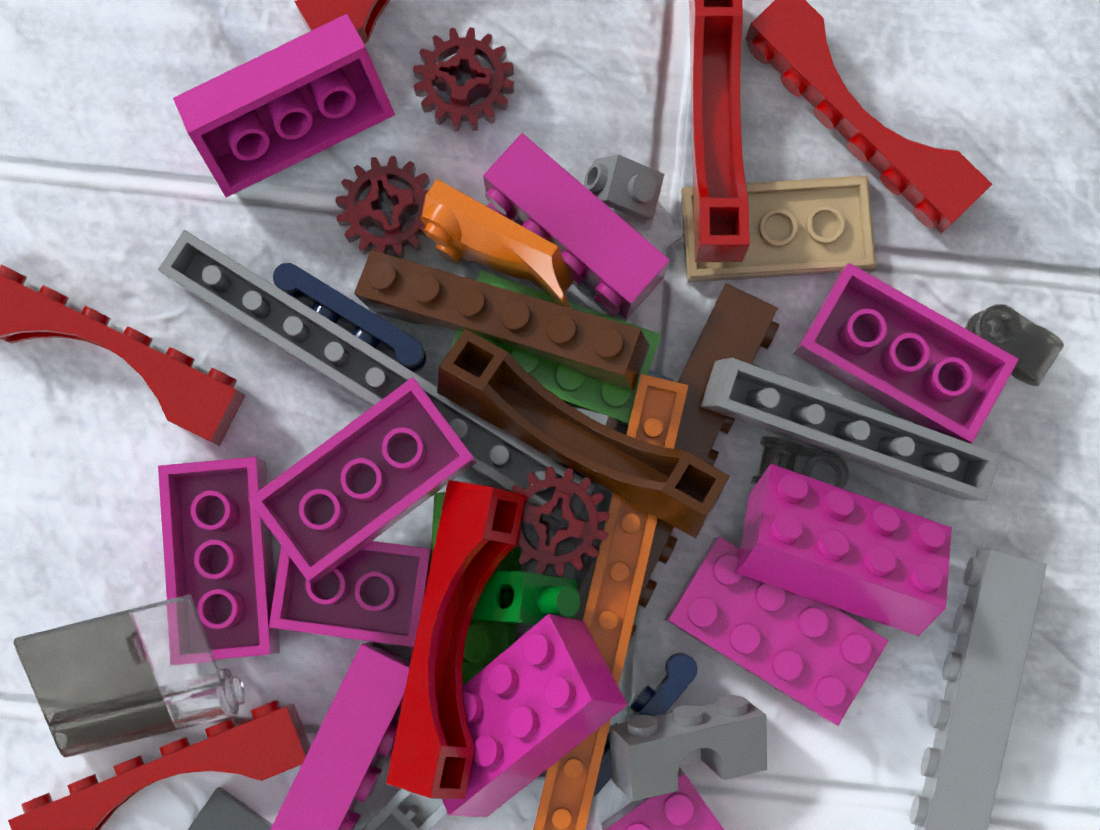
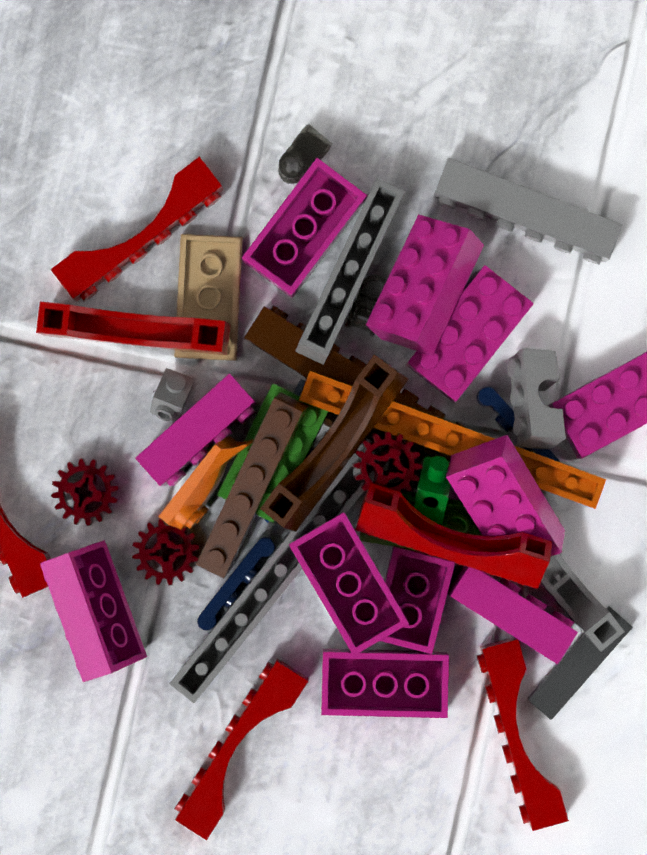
camera: 80 degrees left, 5 degrees up
(127, 676) = (452, 746): clear smoke door -> none

